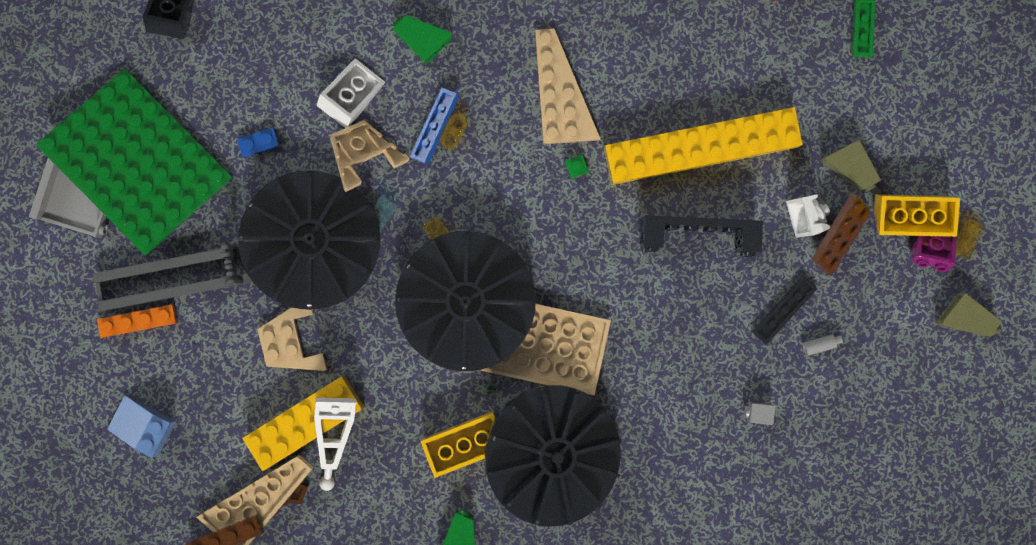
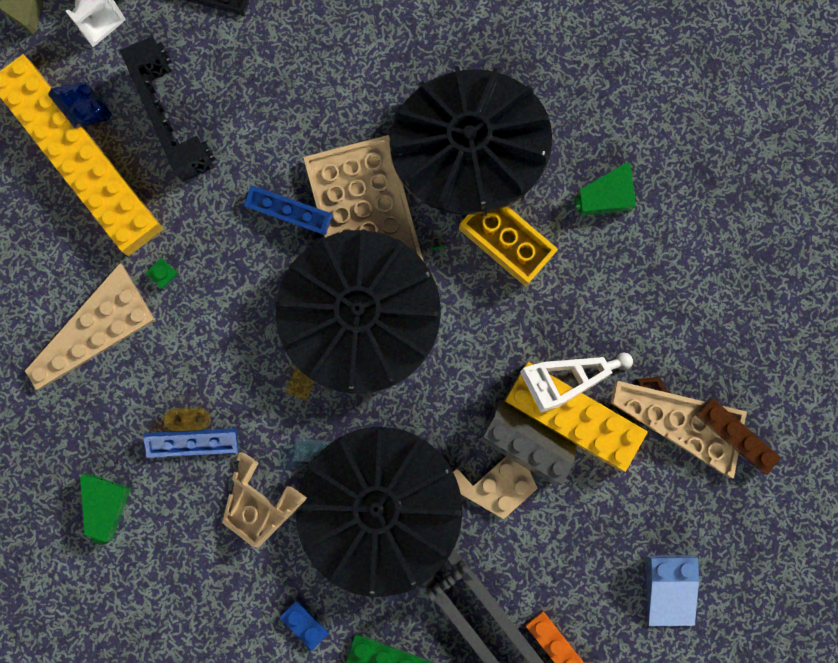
camera: 120 degrees left, 5 degrees down
(302, 378) = (529, 443): none -> dark grey slope
(350, 93) = (201, 552): white slope -> none
(574, 287) = (288, 210): none -> blue plate
(740, 169) = (79, 104): none -> clear blue plate

